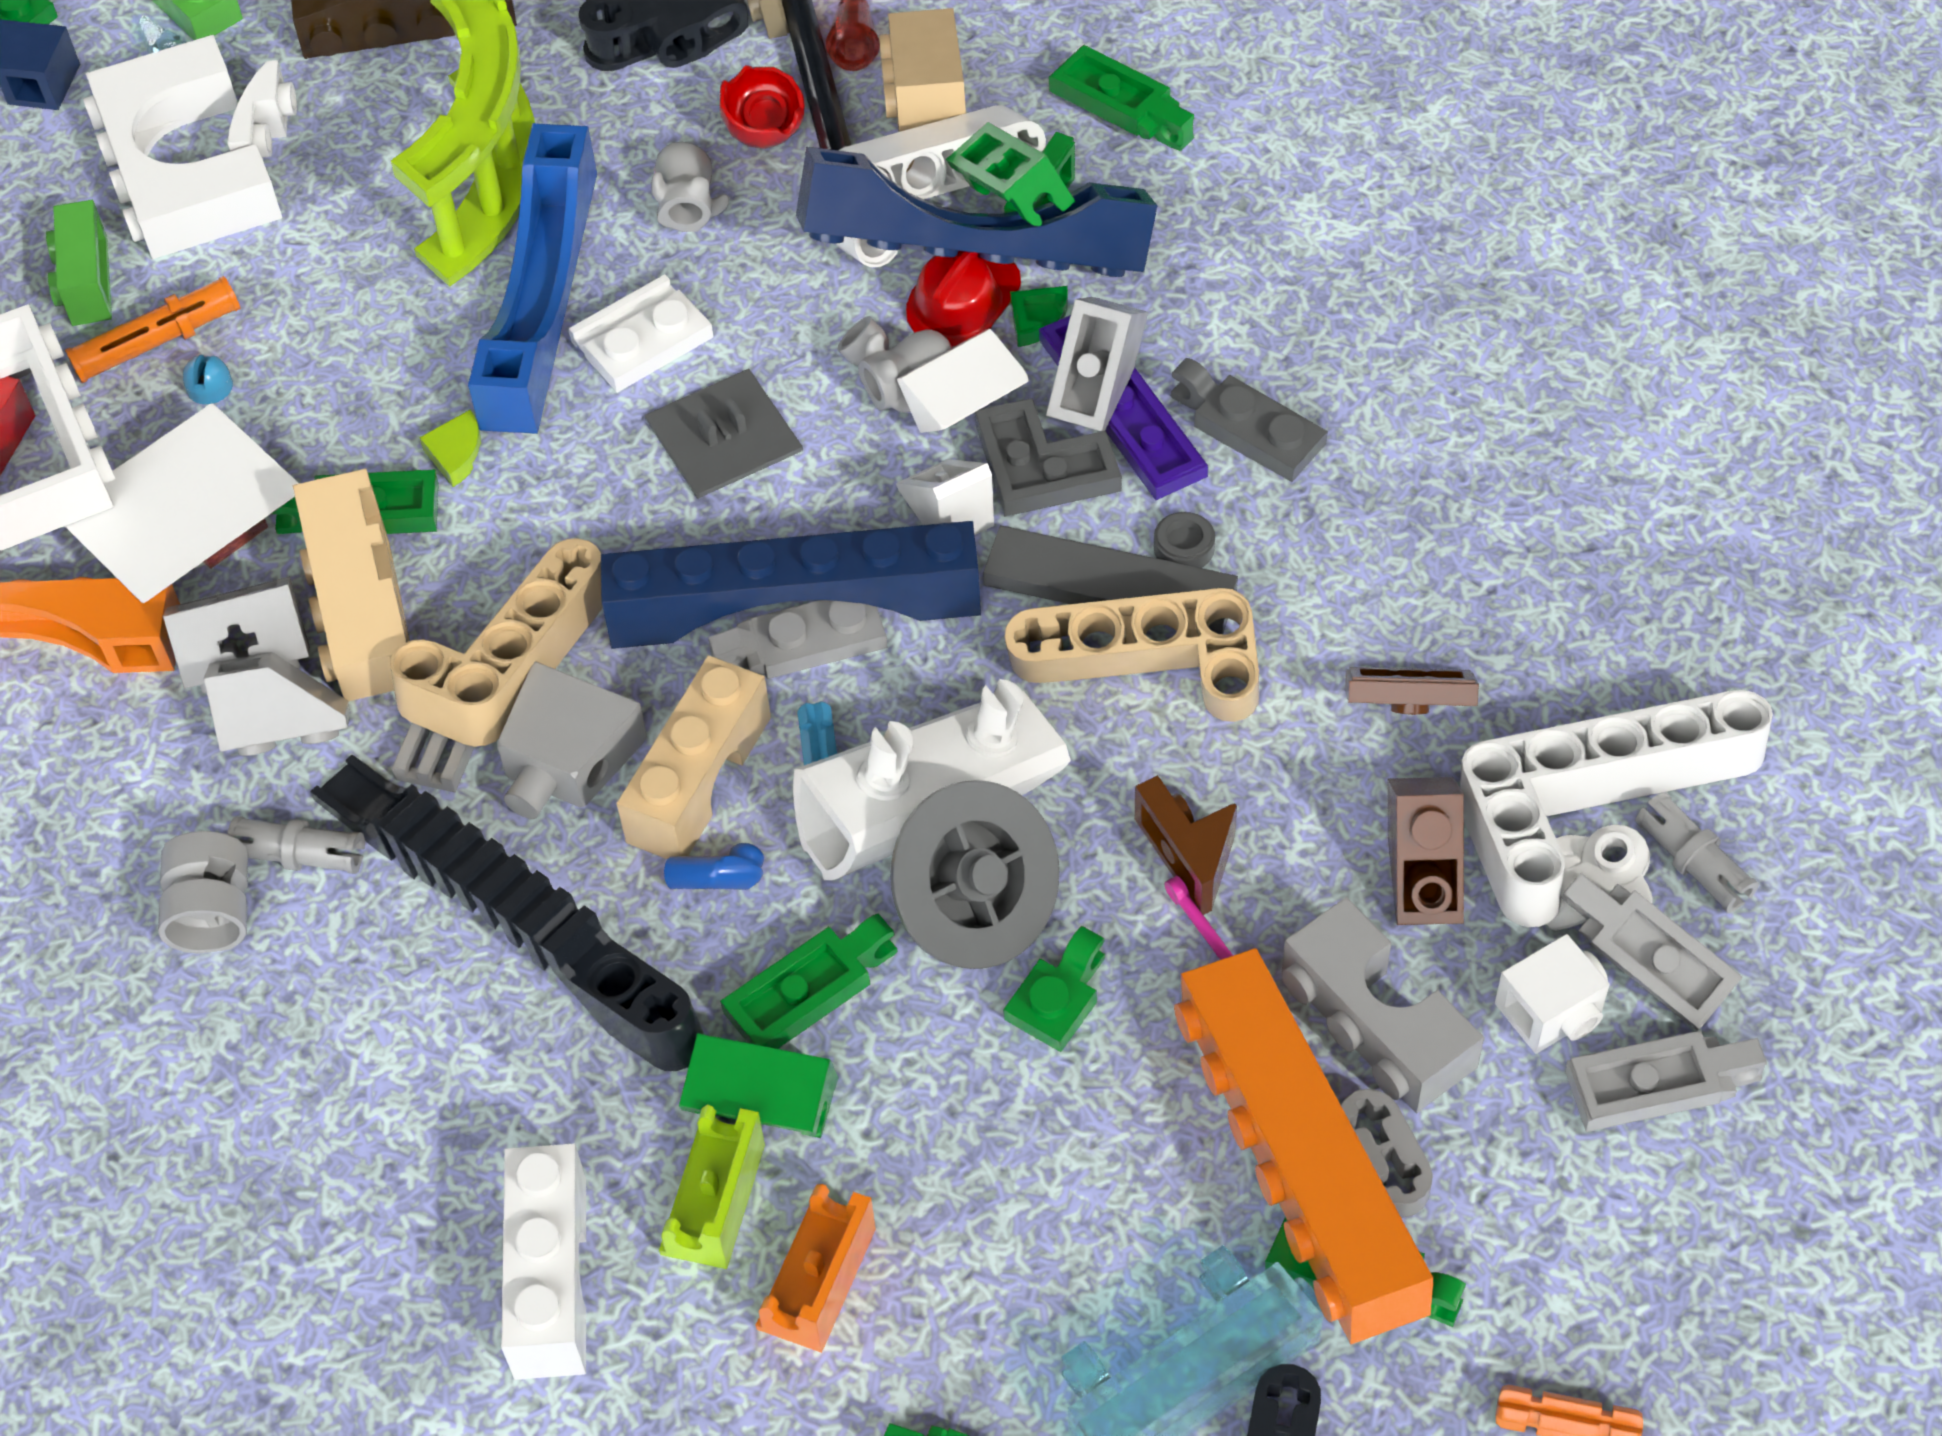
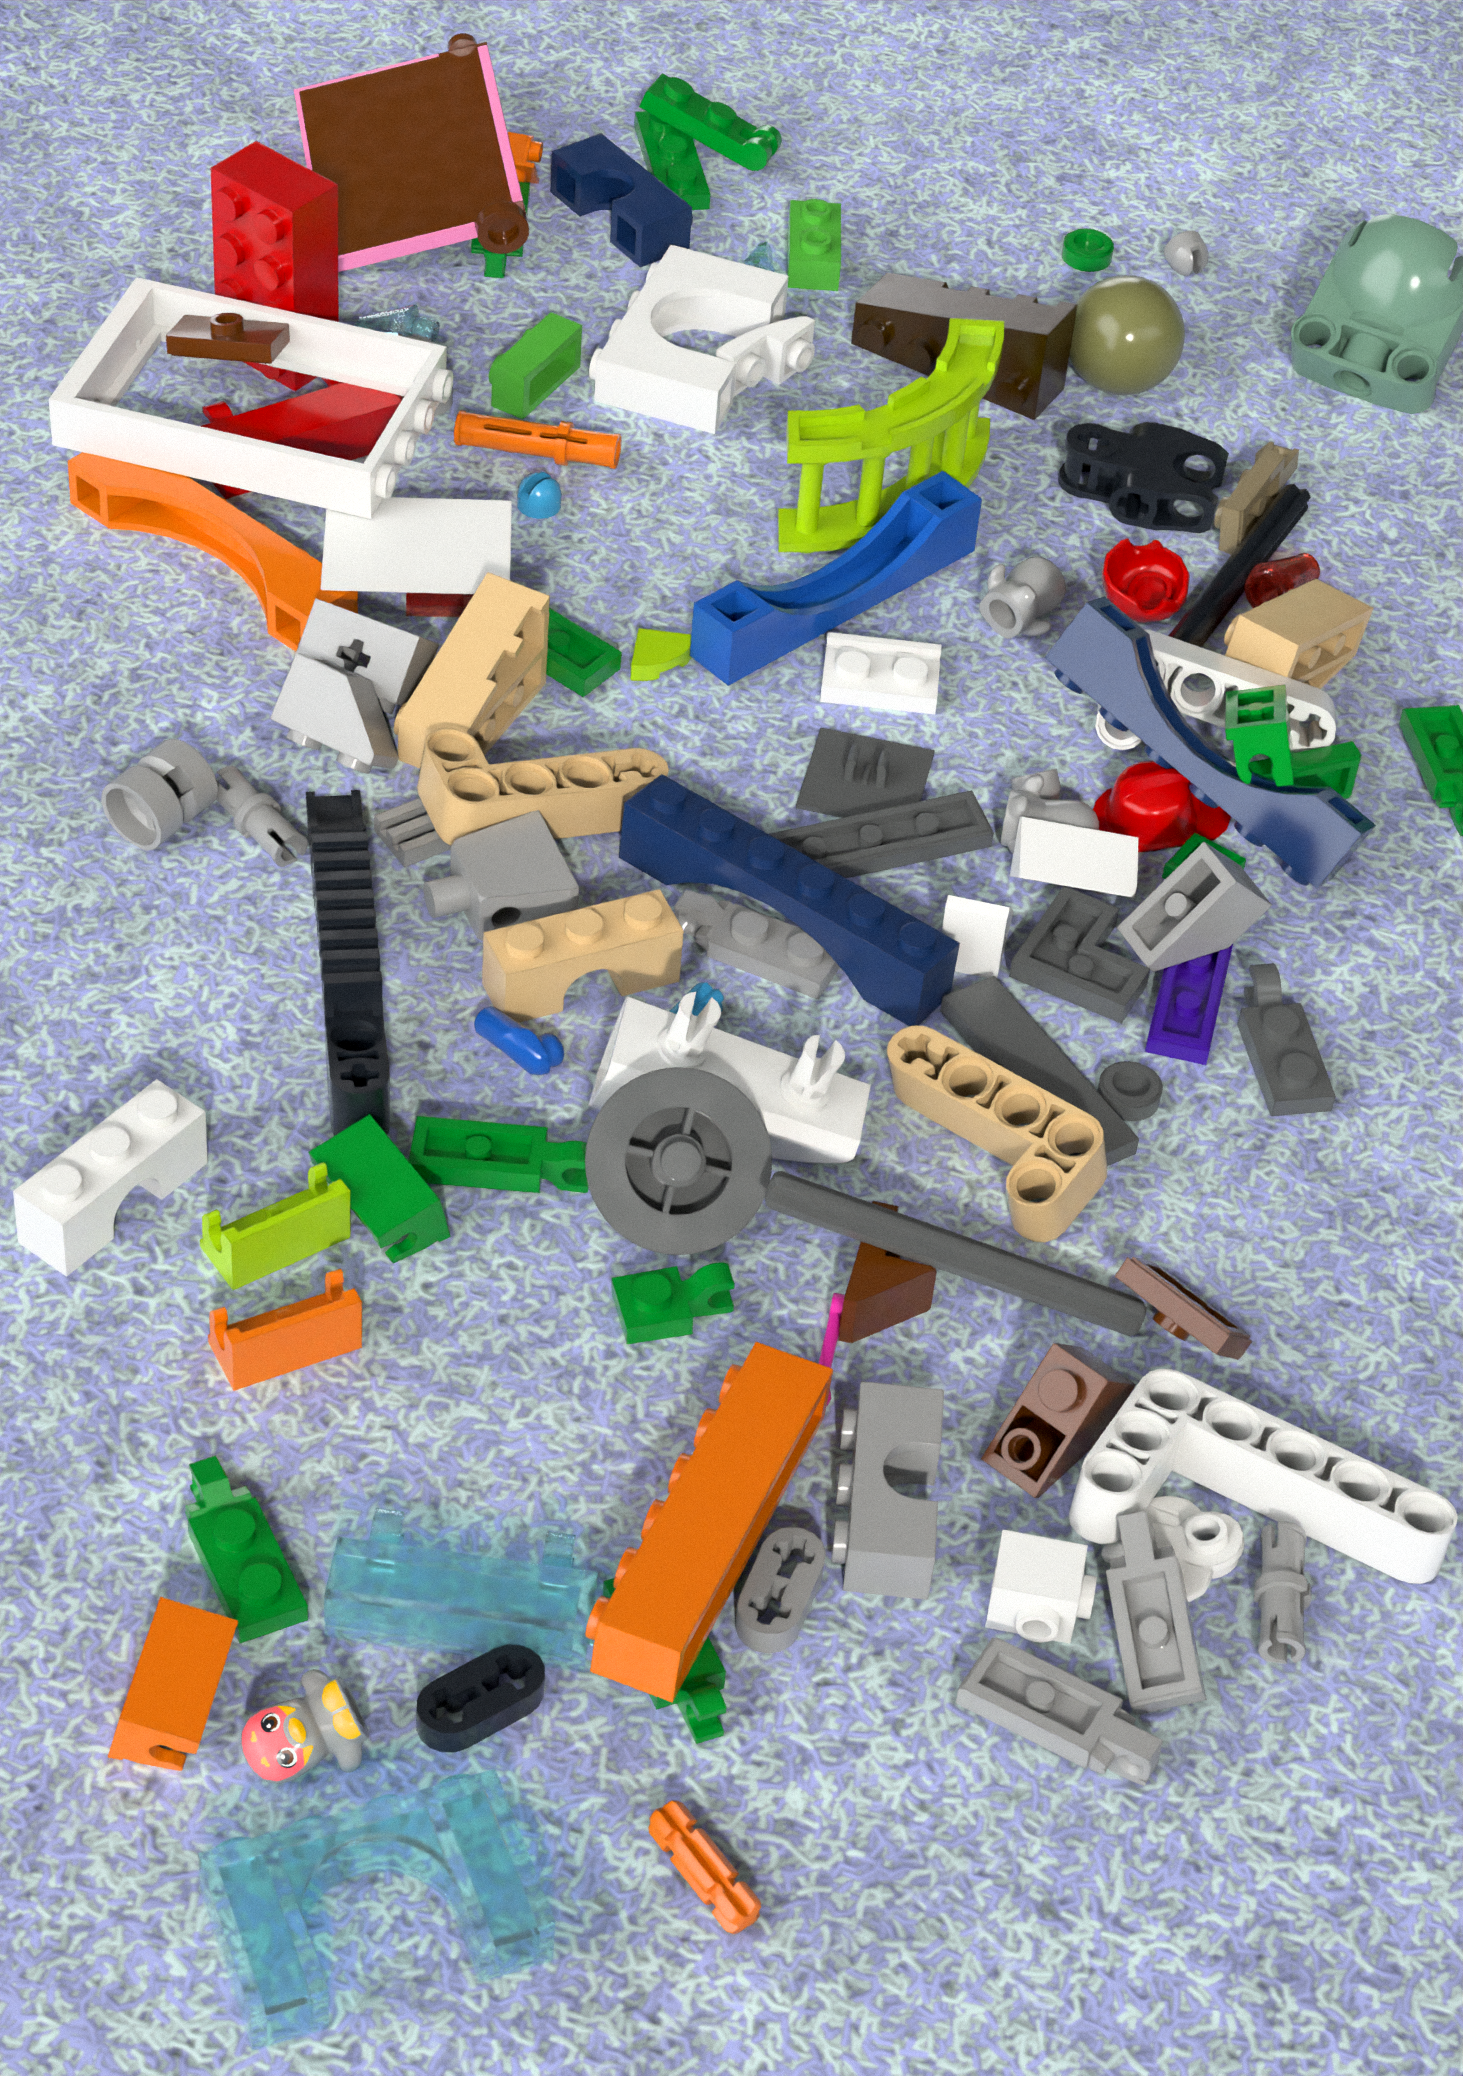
camera: 35 degrees right, 10 degrees down
(799, 468) = (894, 835): none -> dark grey tile
(1233, 782) = (955, 1253): none -> dark grey axle

